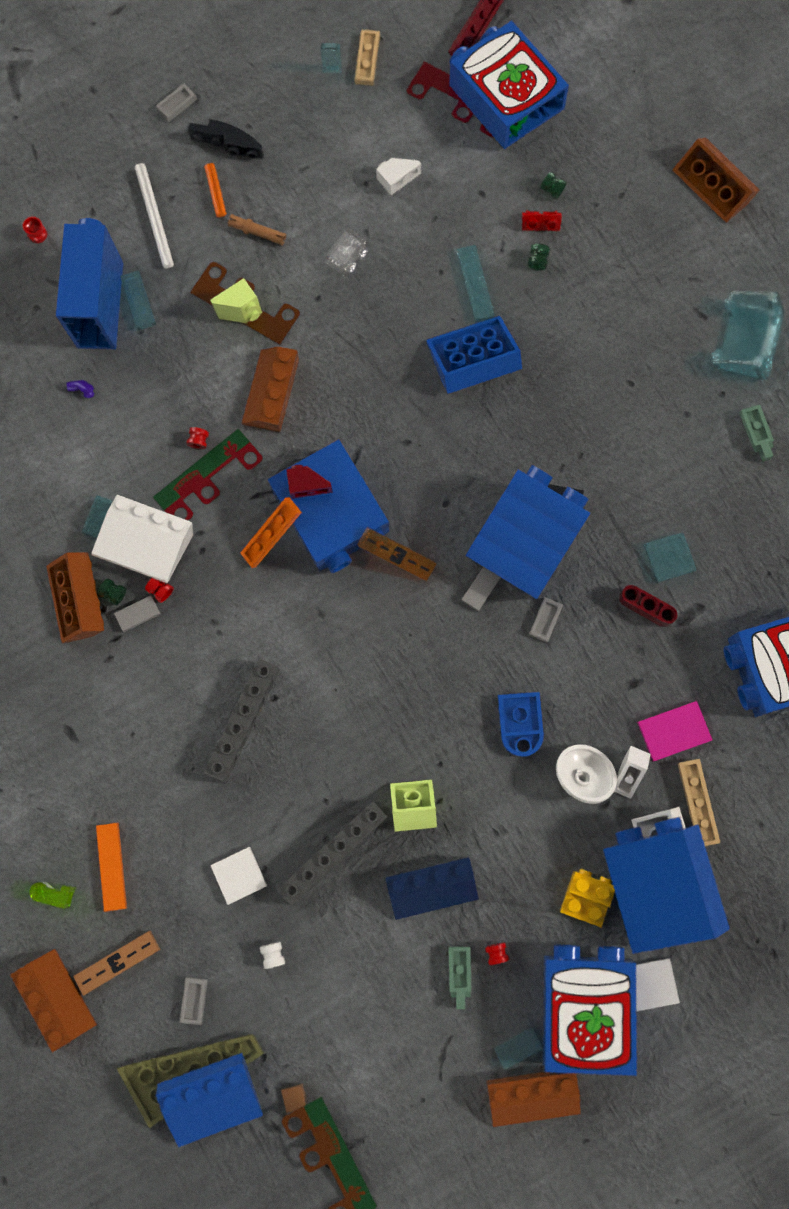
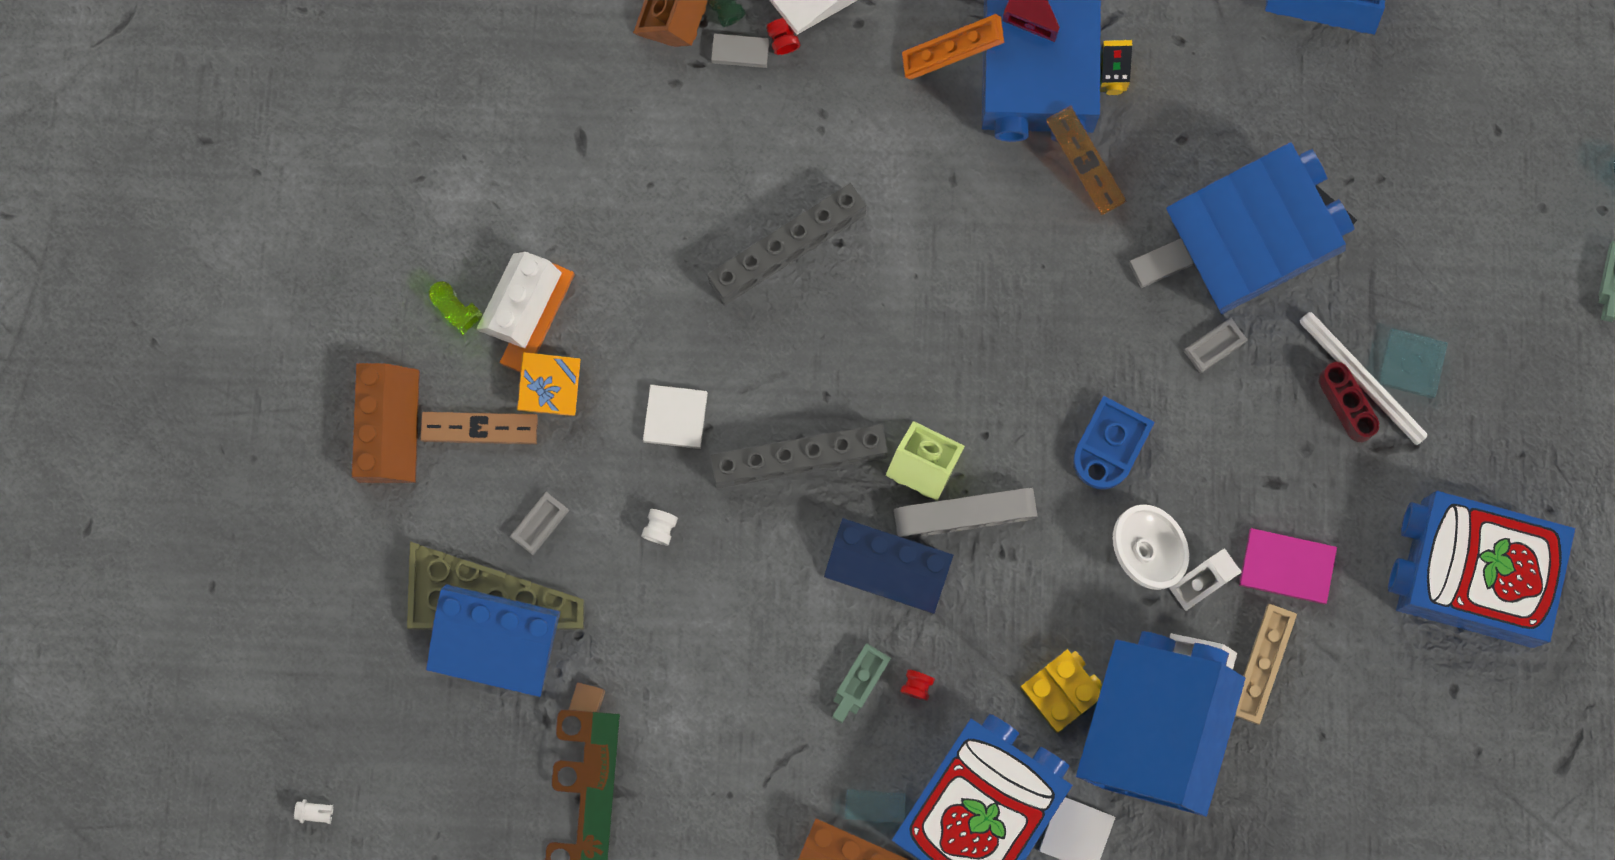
camera: 30 degrees right, 0 degrees up
(92, 863) = (519, 299): none -> white slope
(144, 907) = (548, 384): none -> light orange tile
(378, 483) = (1115, 66): none -> slope
(459, 823) = (965, 513): none -> light grey beam
(647, 585) = (1364, 378): none -> white axle

